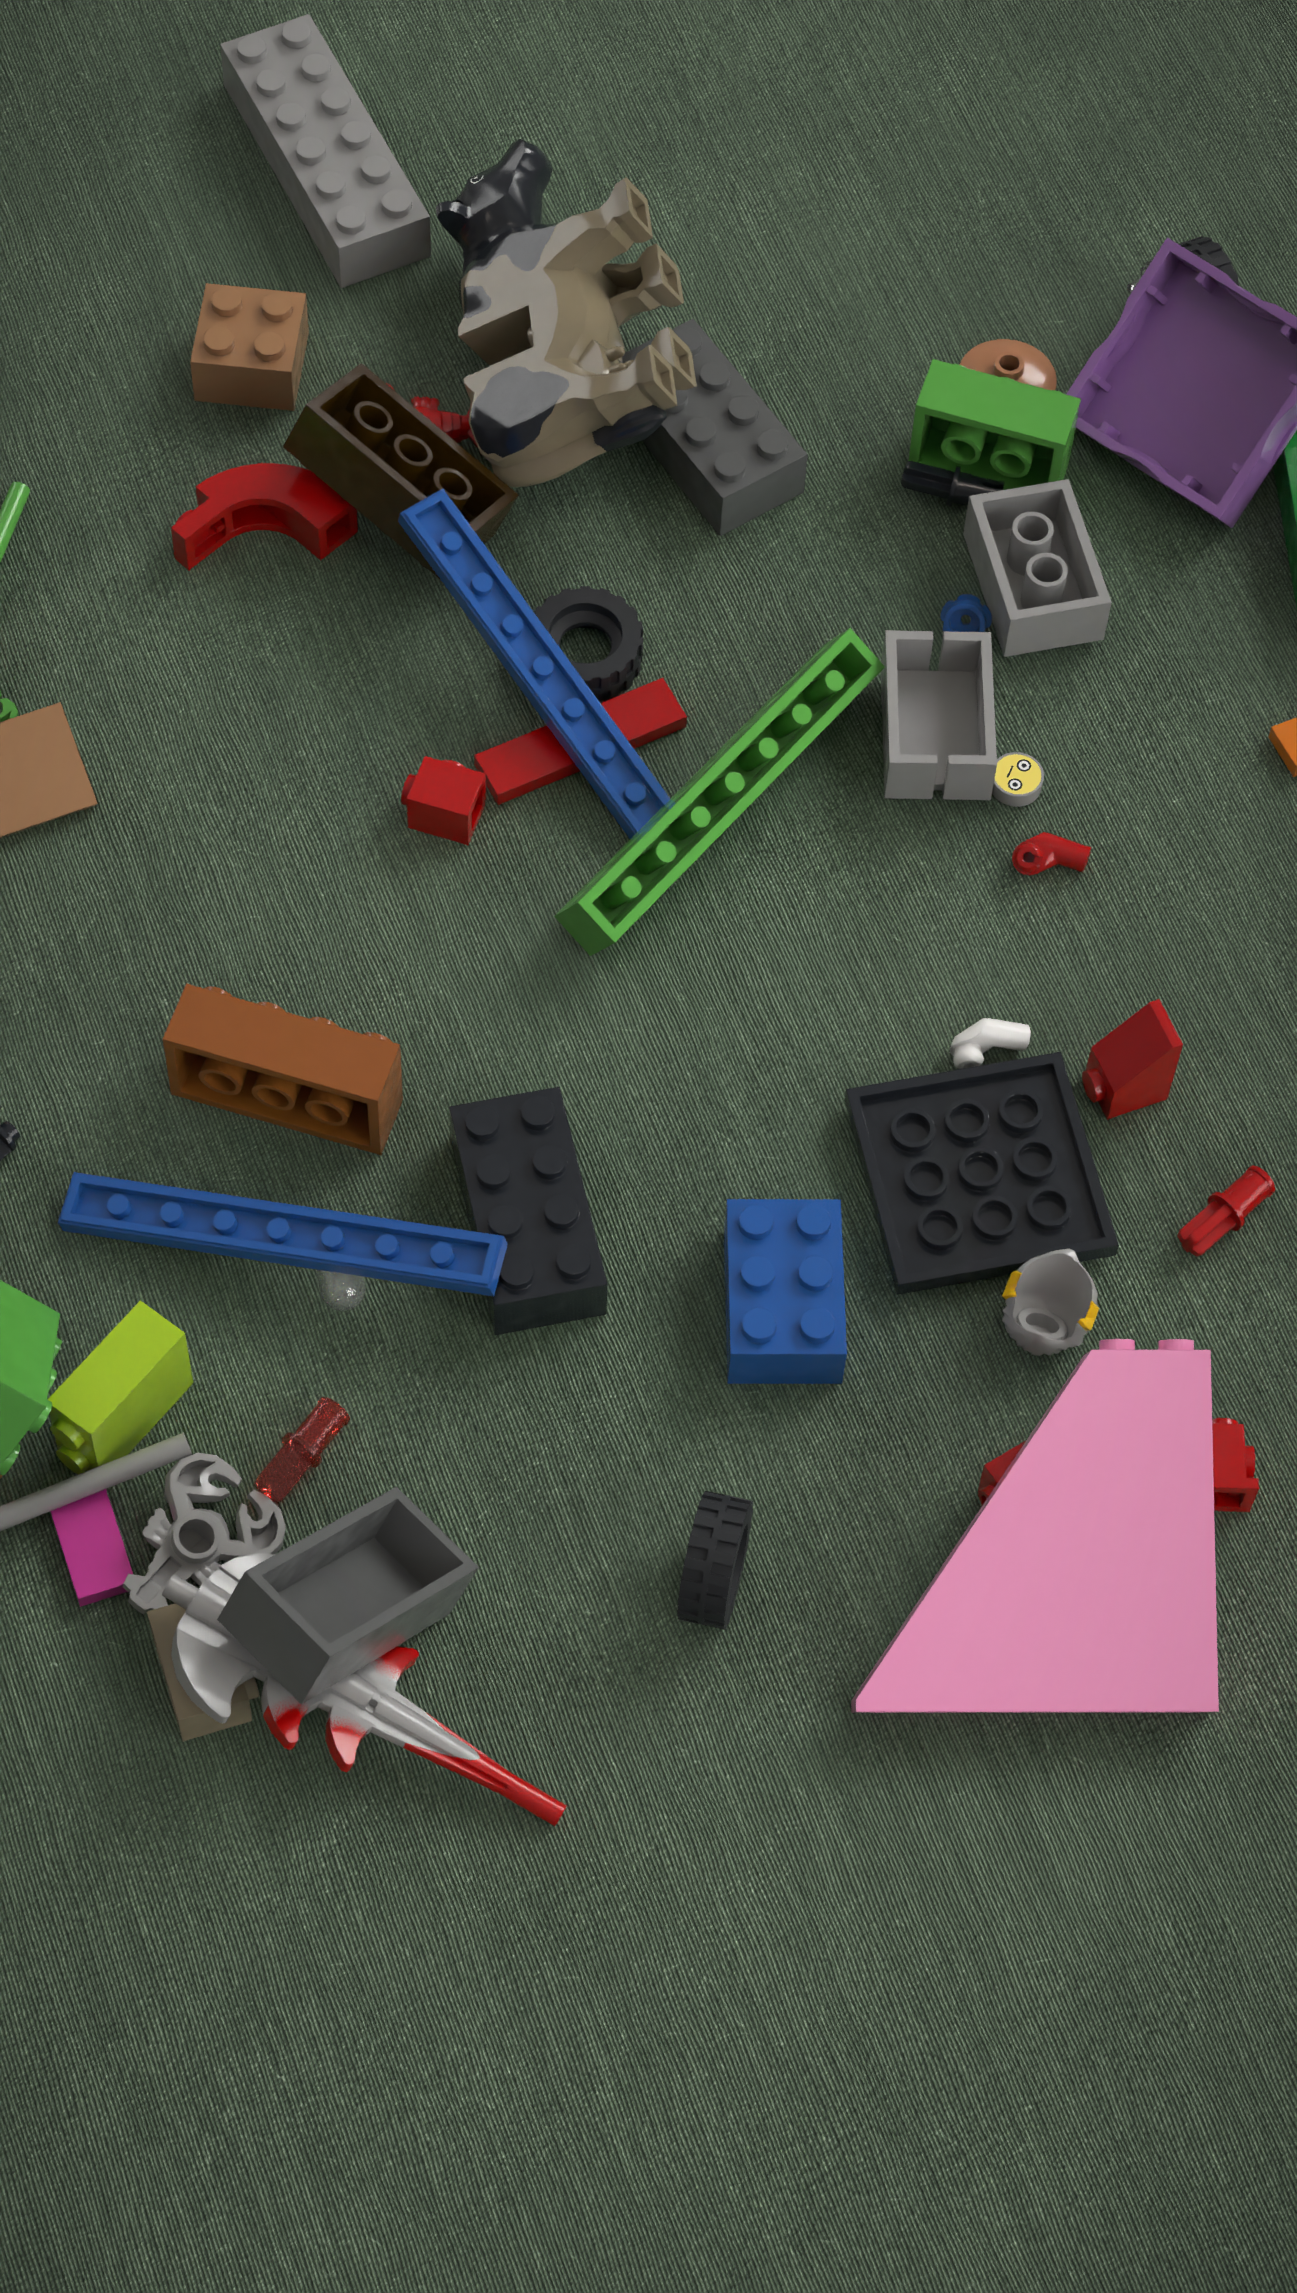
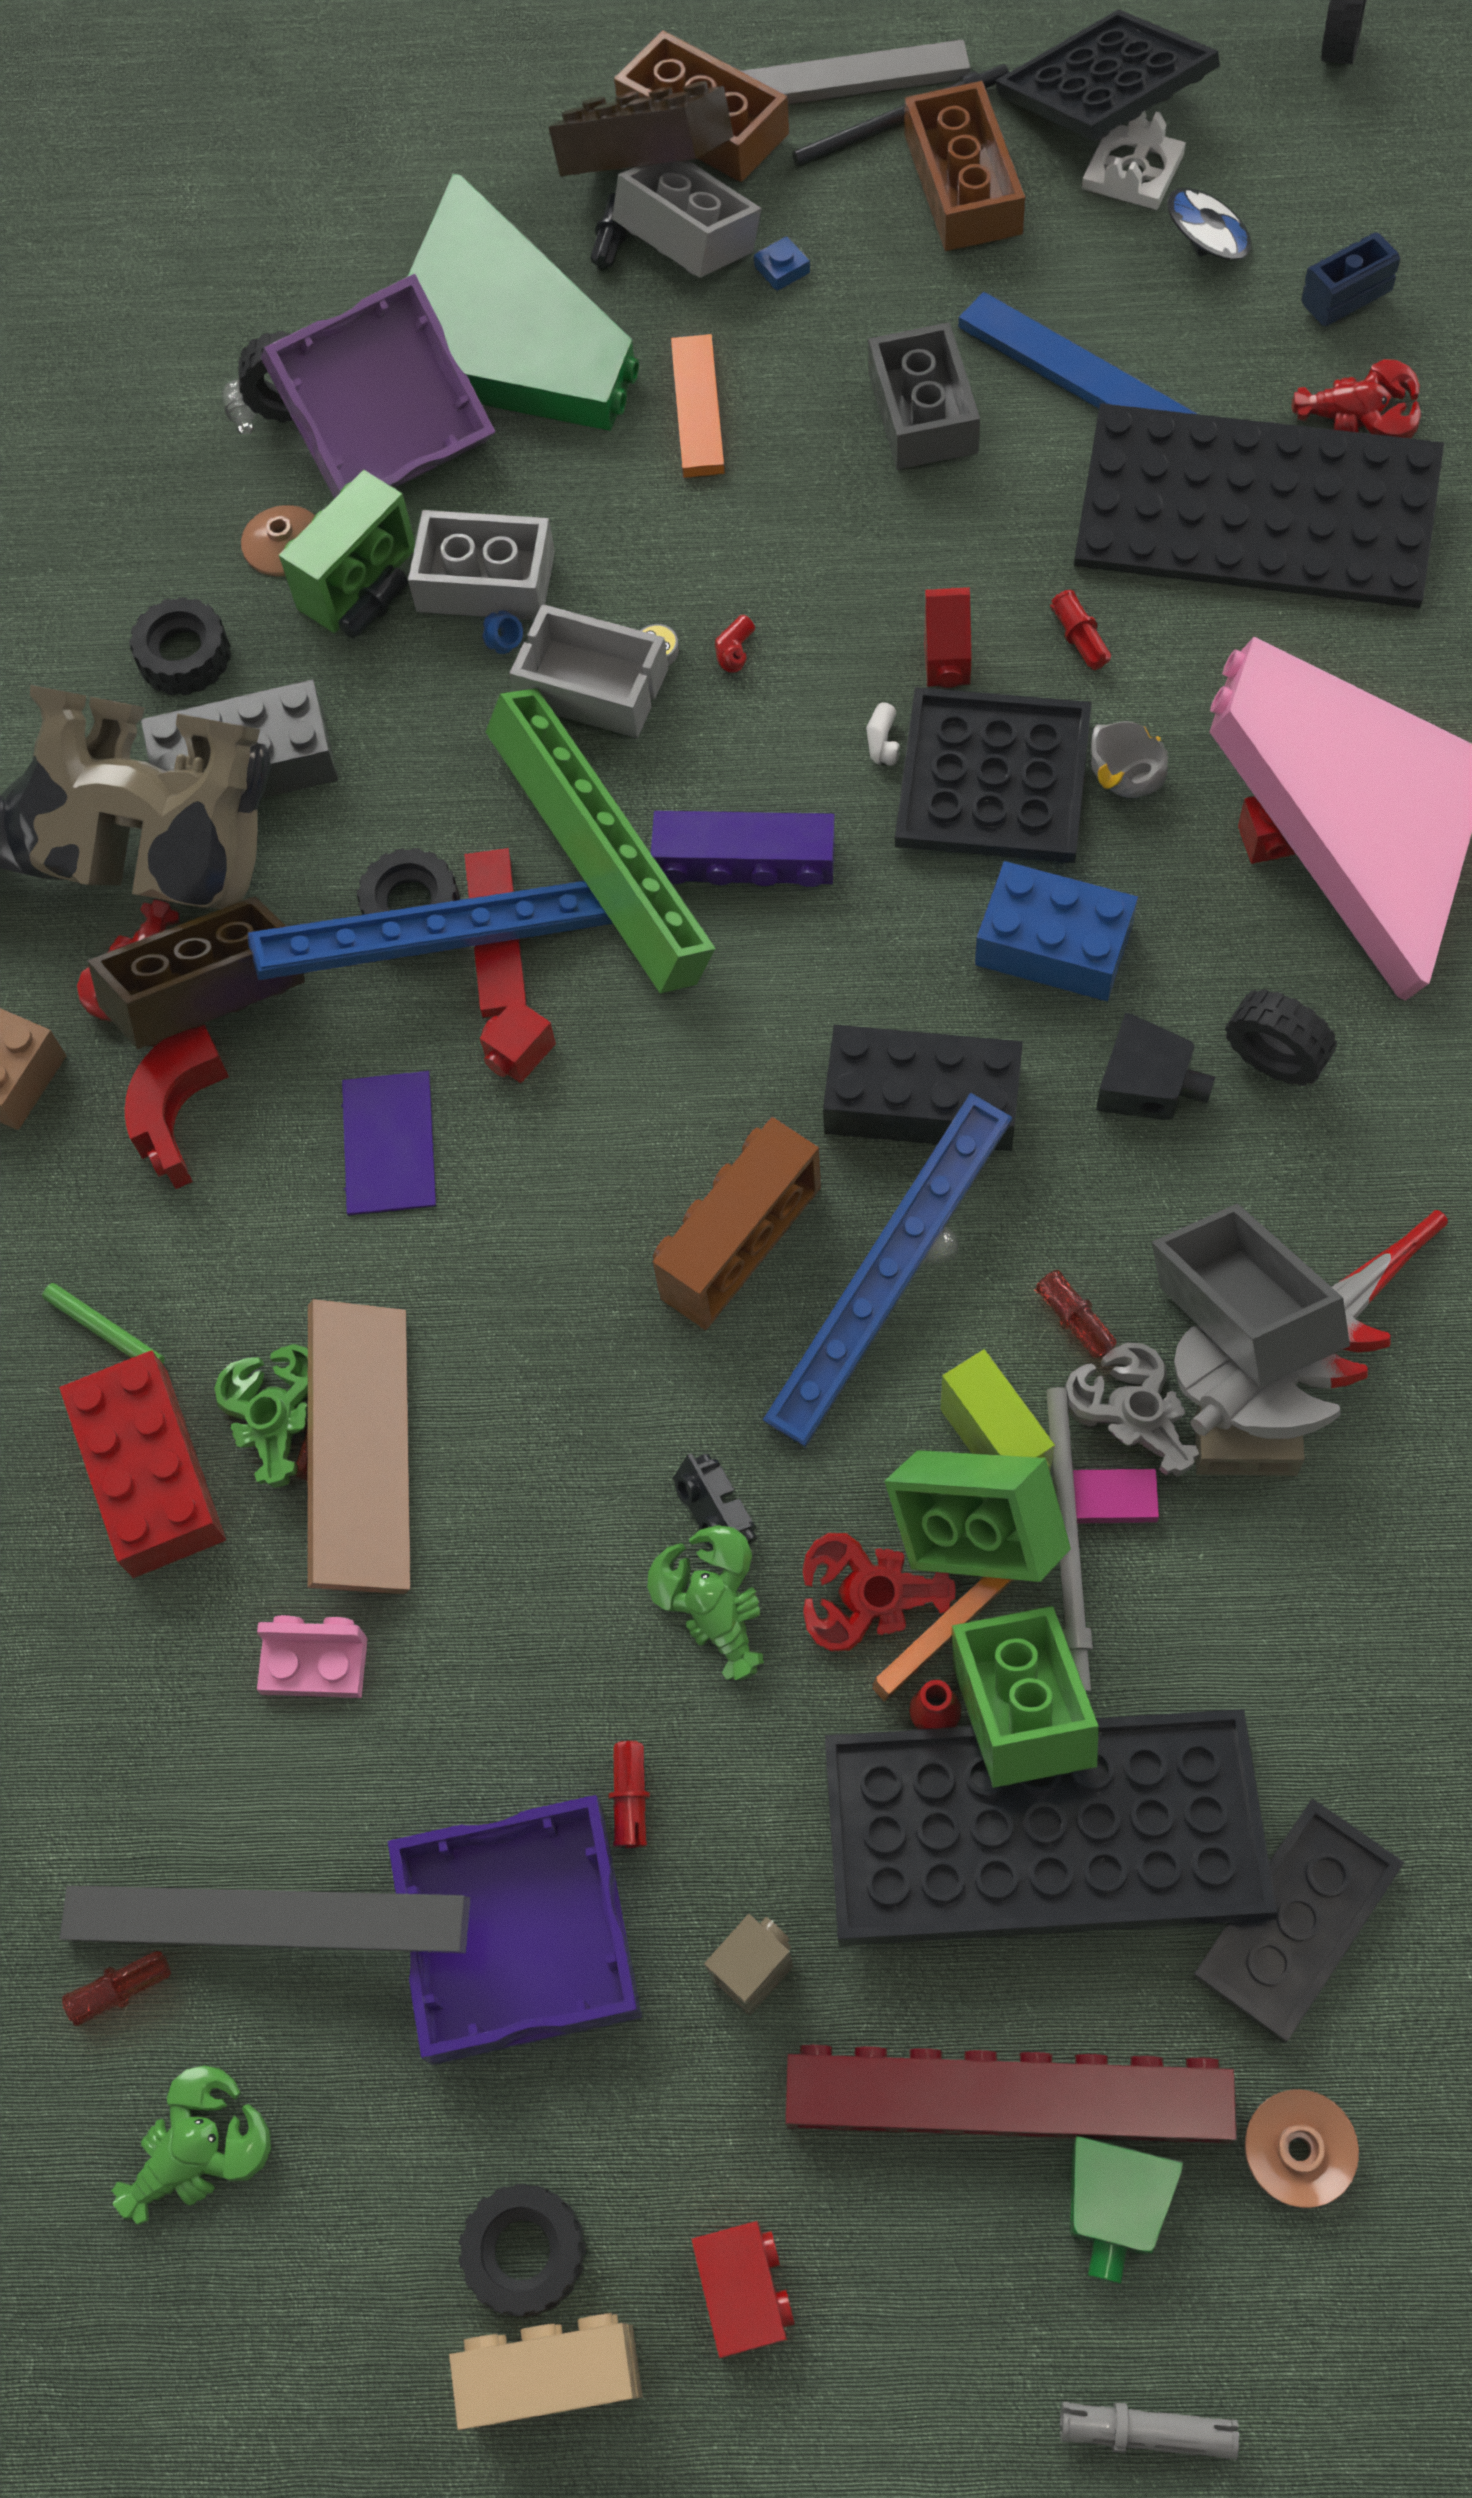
camera: 60 degrees left, 5 degrees up
(292, 728) = (388, 1143): none -> dark purple window
(634, 1442) = (1150, 1072): none -> black torso
(773, 943) = (744, 847): none -> dark purple brick
(821, 298) = (170, 619): none -> black tyre

